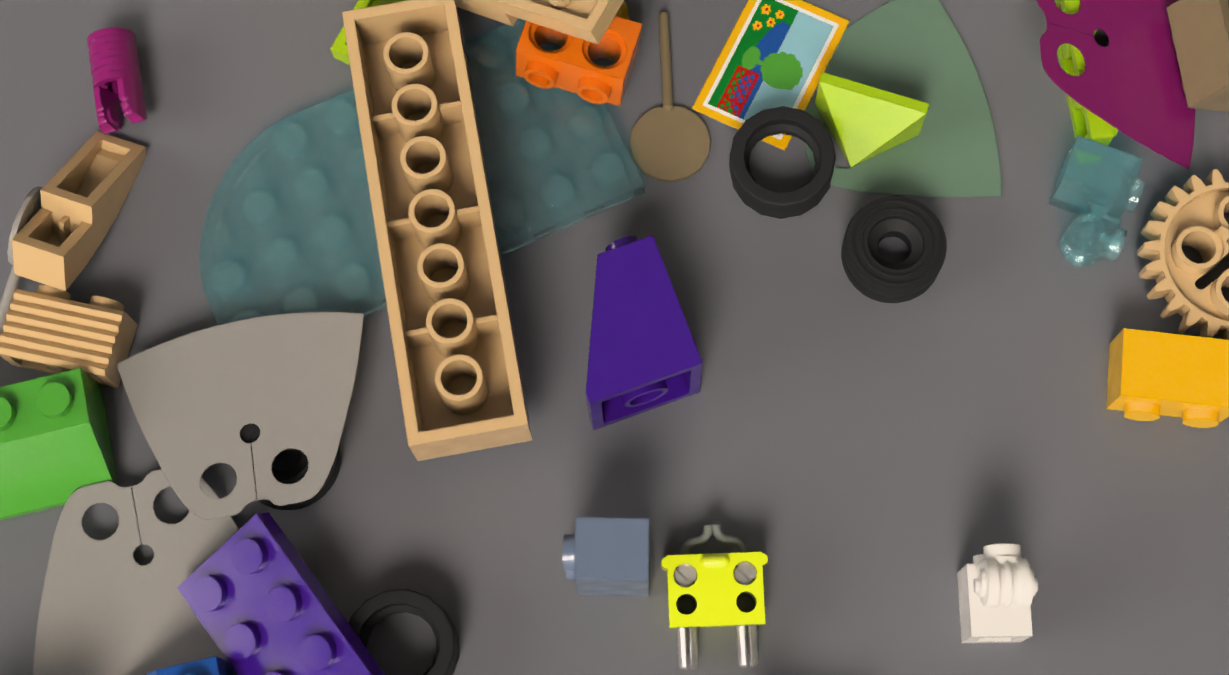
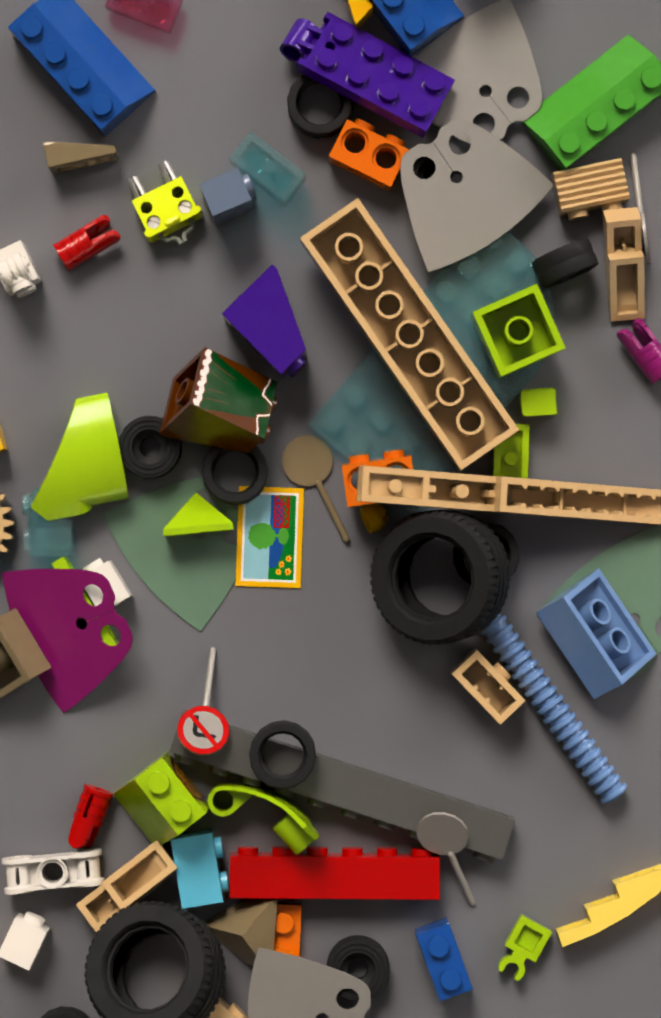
camera: 155 degrees right, 15 degrees up
(159, 238) = (565, 263): none -> black tyre
(274, 160) = (517, 331): none -> lime brick
(301, 72) = (538, 402): none -> lime slope
(373, 526) = (364, 162): none -> orange brick
(528, 574) = (268, 168): none -> clear light blue brick
(766, 253) = (219, 404): none -> reddish brown slope
(877, 591) = (79, 246): none -> red hinge
(999, 257) = (86, 464): none -> lime panel
(1032, 94) = (117, 583): none -> white brick

